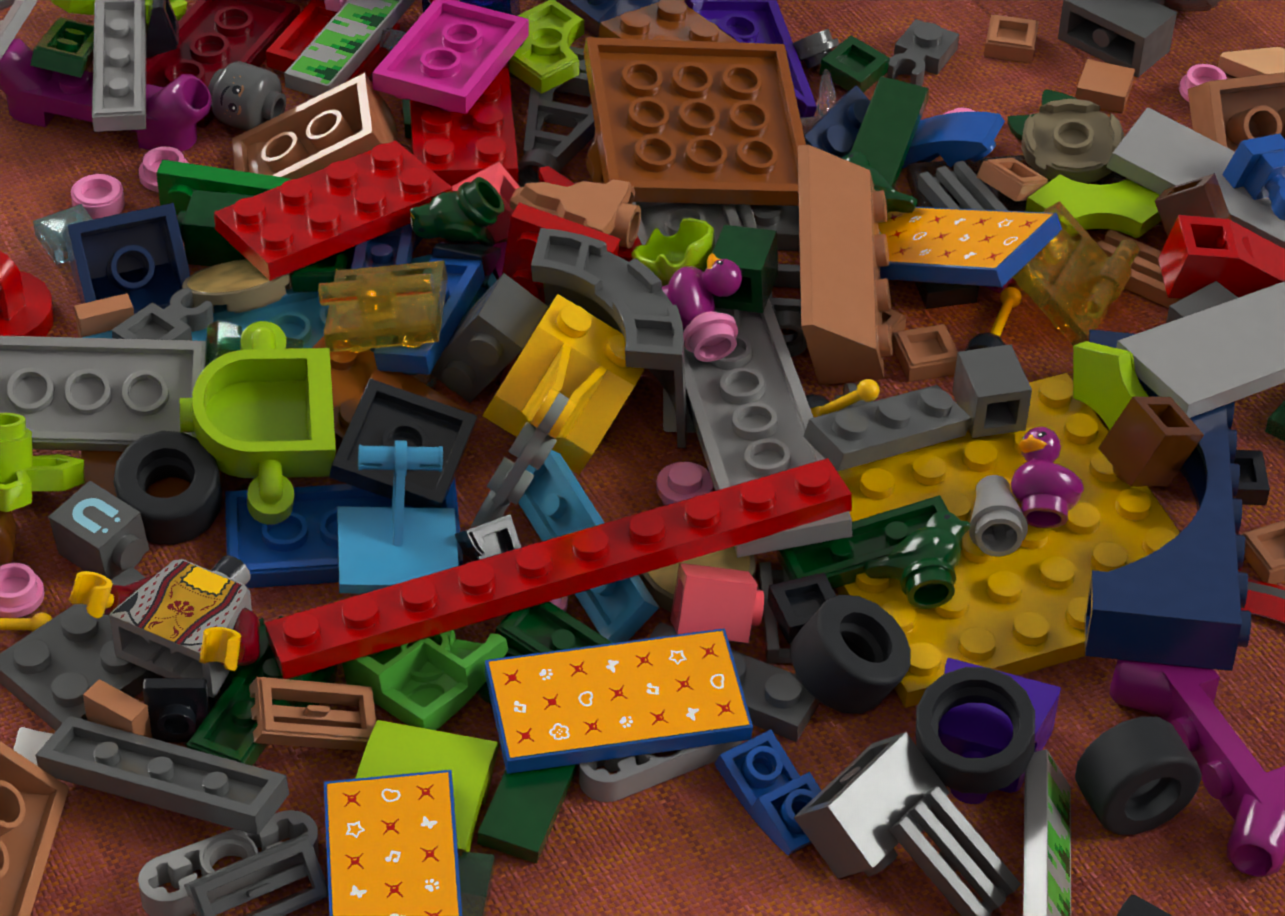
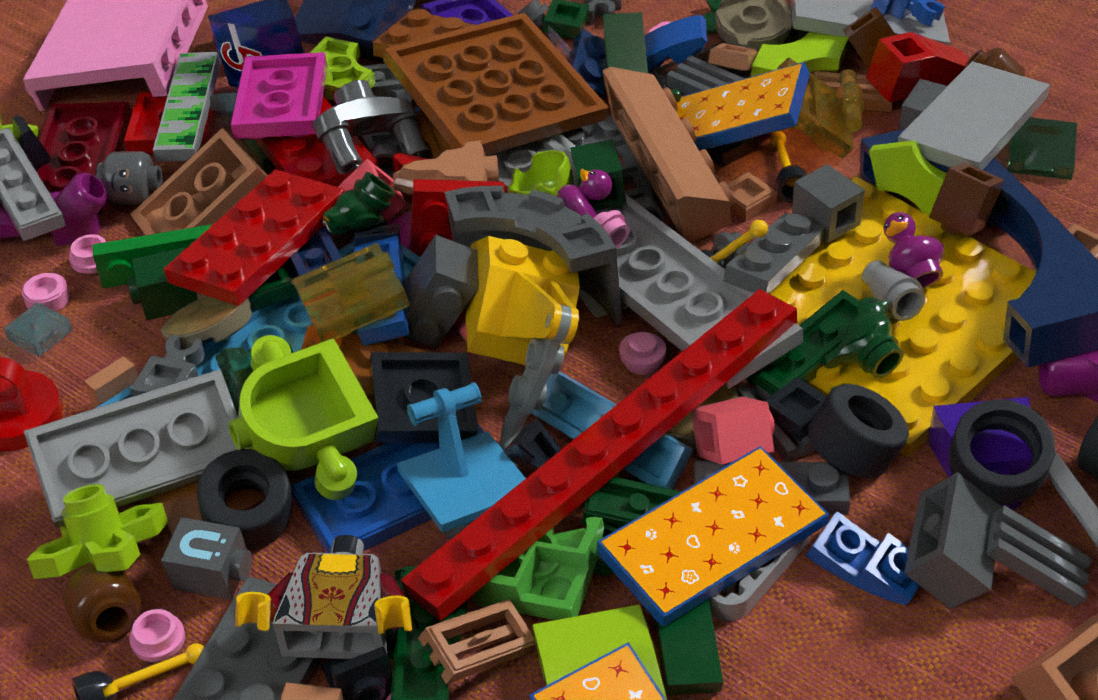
camera: 20 degrees left, 0 degrees up
(128, 254) = (103, 329): dark blue slope -> none
(524, 107) = (363, 114): none -> dark grey connector

